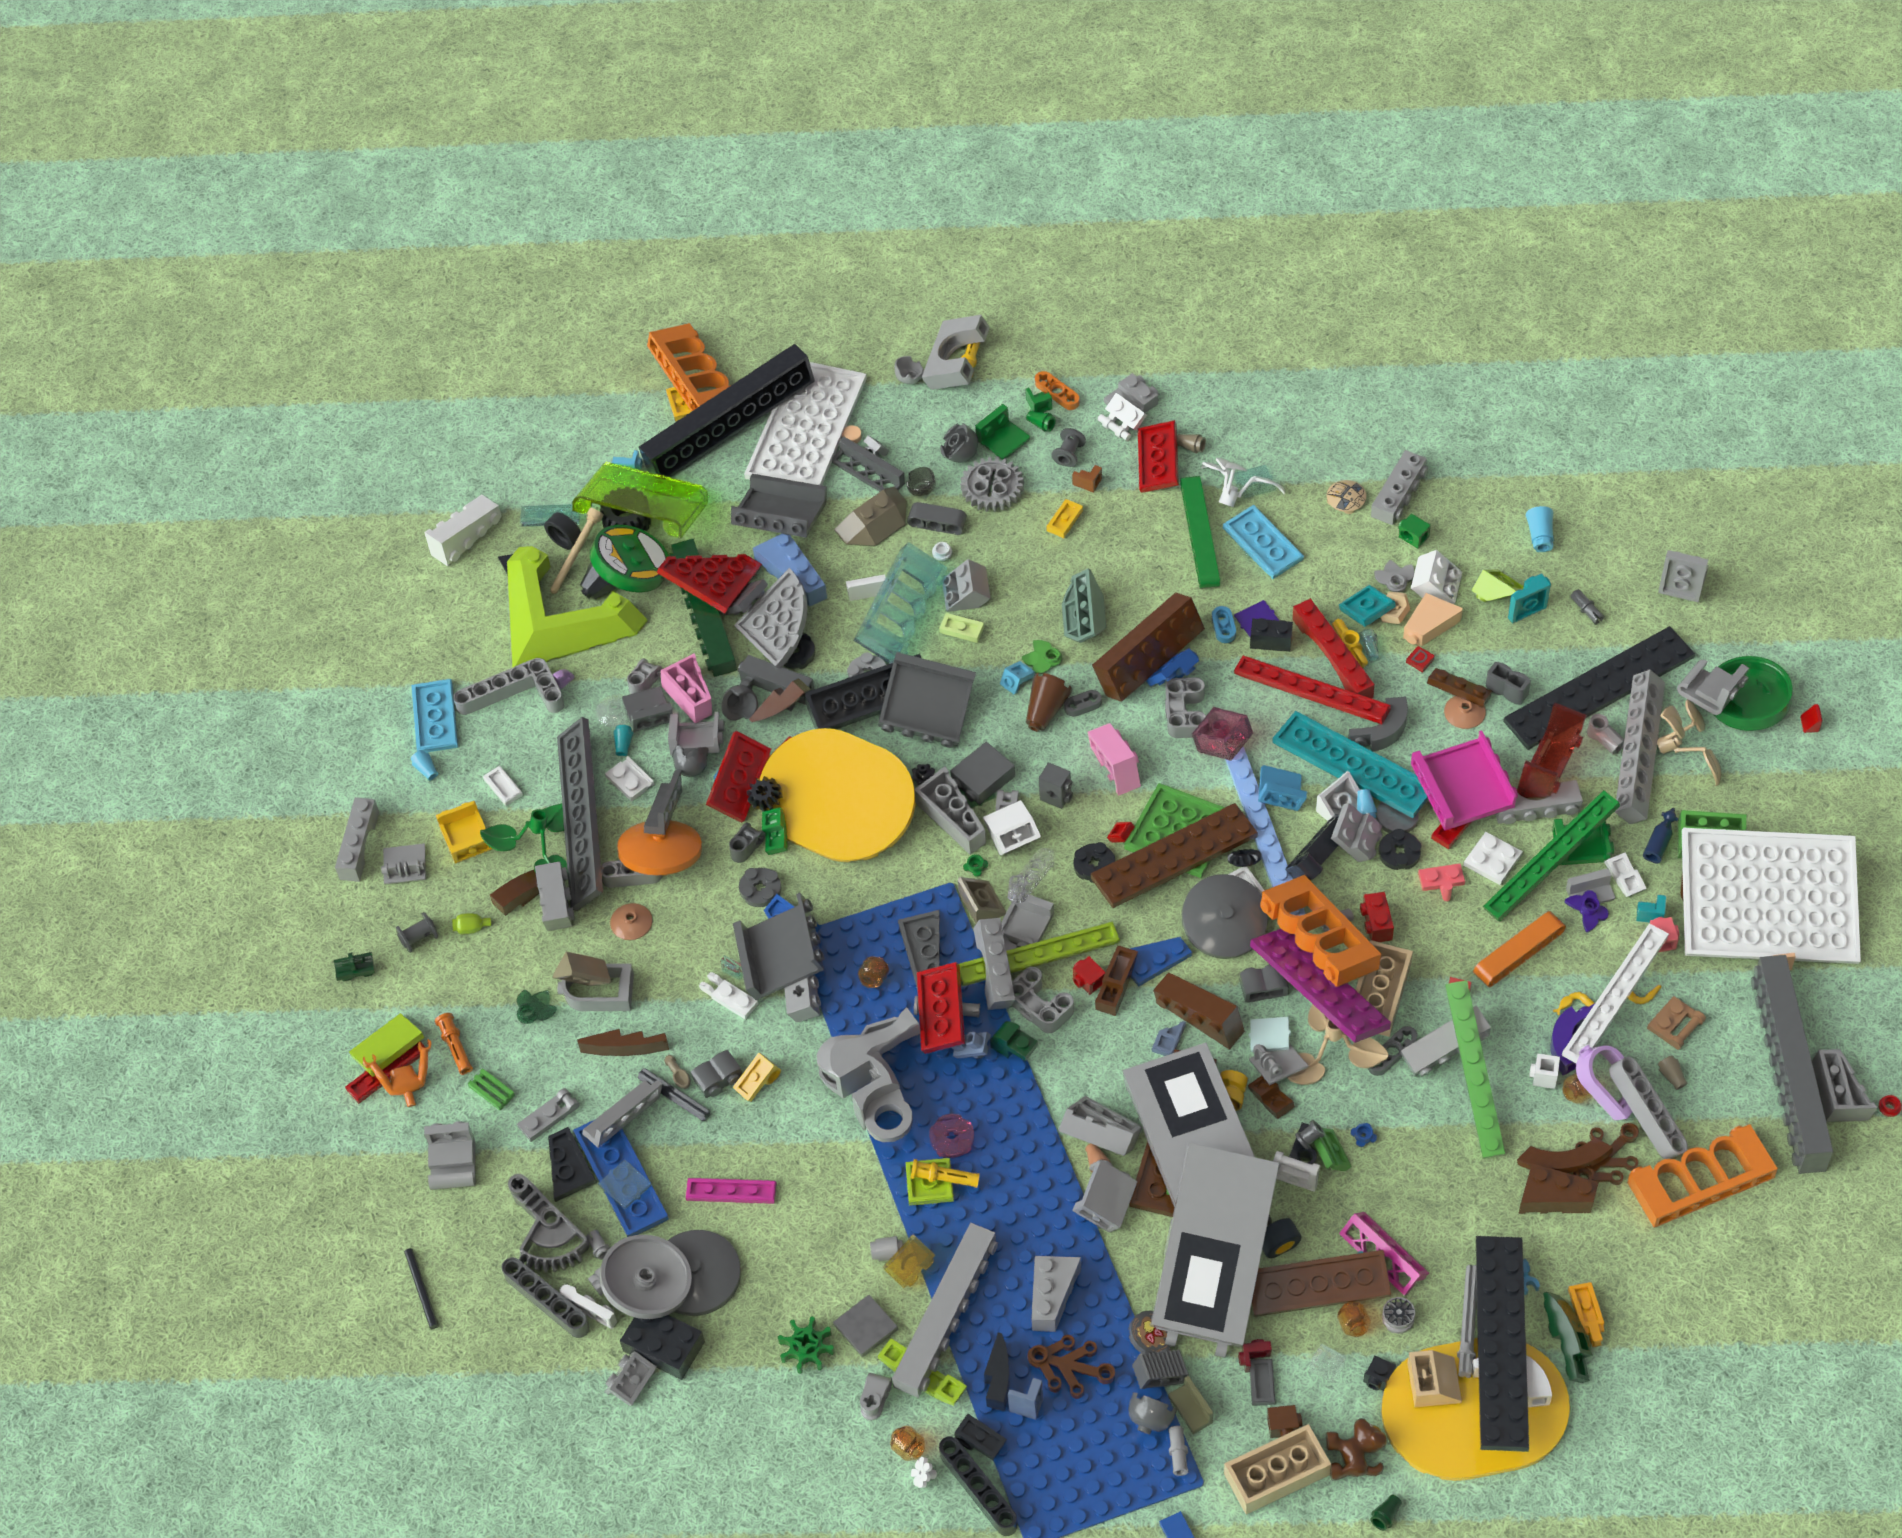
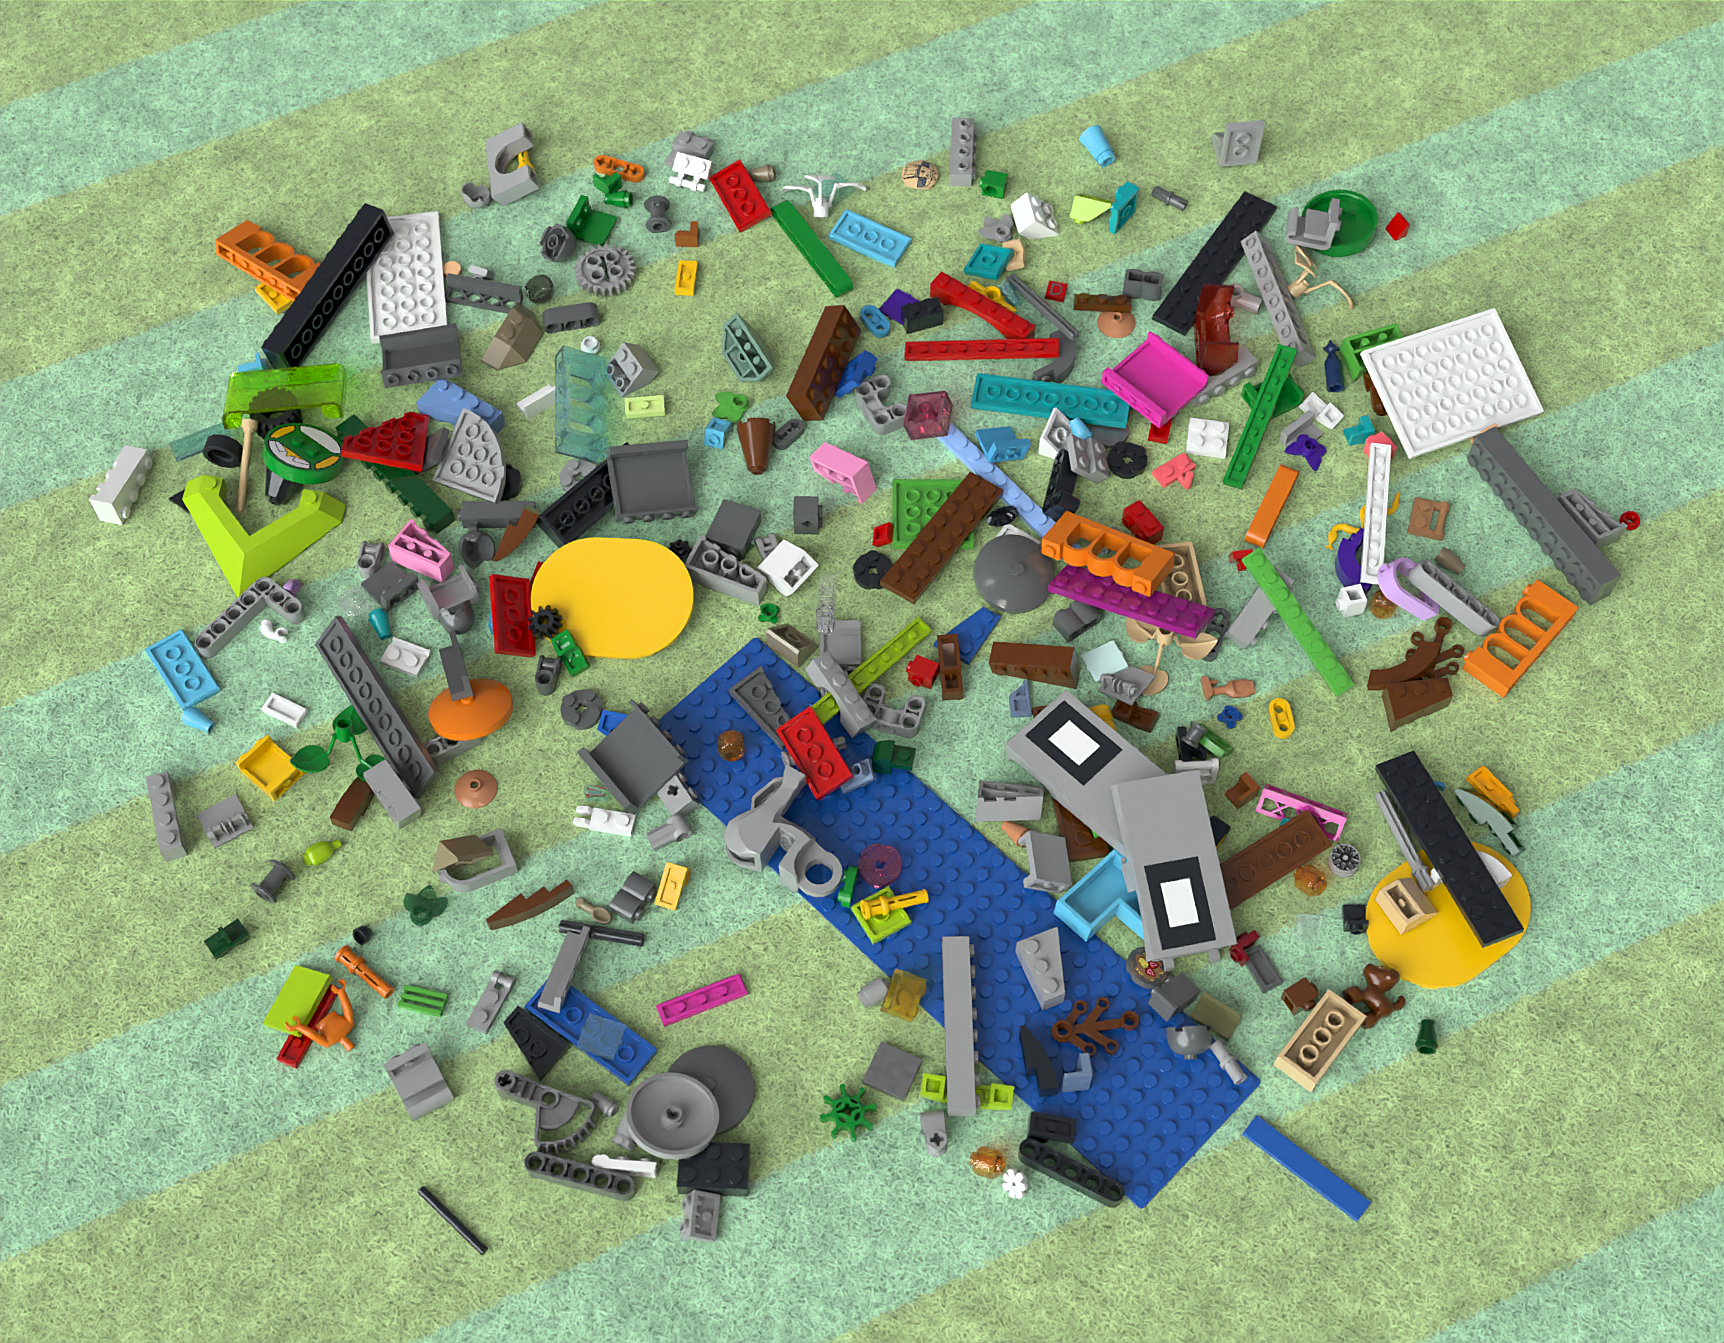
camera: 30 degrees left, 5 degrees up
(469, 1010) = (362, 934): none -> black hinge
(522, 708) = (267, 630): none -> white arm
(785, 1028) = (674, 830): none -> light grey piece
(907, 1148) = (850, 878): none -> green plate
(1132, 1249) = (1099, 898): none -> medium azure piece
(1335, 1211) = (1243, 791): none -> dark orange panel
(1382, 1110) = (1235, 688): none -> nougat piece
(1393, 669) = (1045, 309): none -> dark grey axle
(1413, 1157) = (1281, 719): none -> yellow plate
(1431, 619) = (1049, 254): light nougat slope -> none

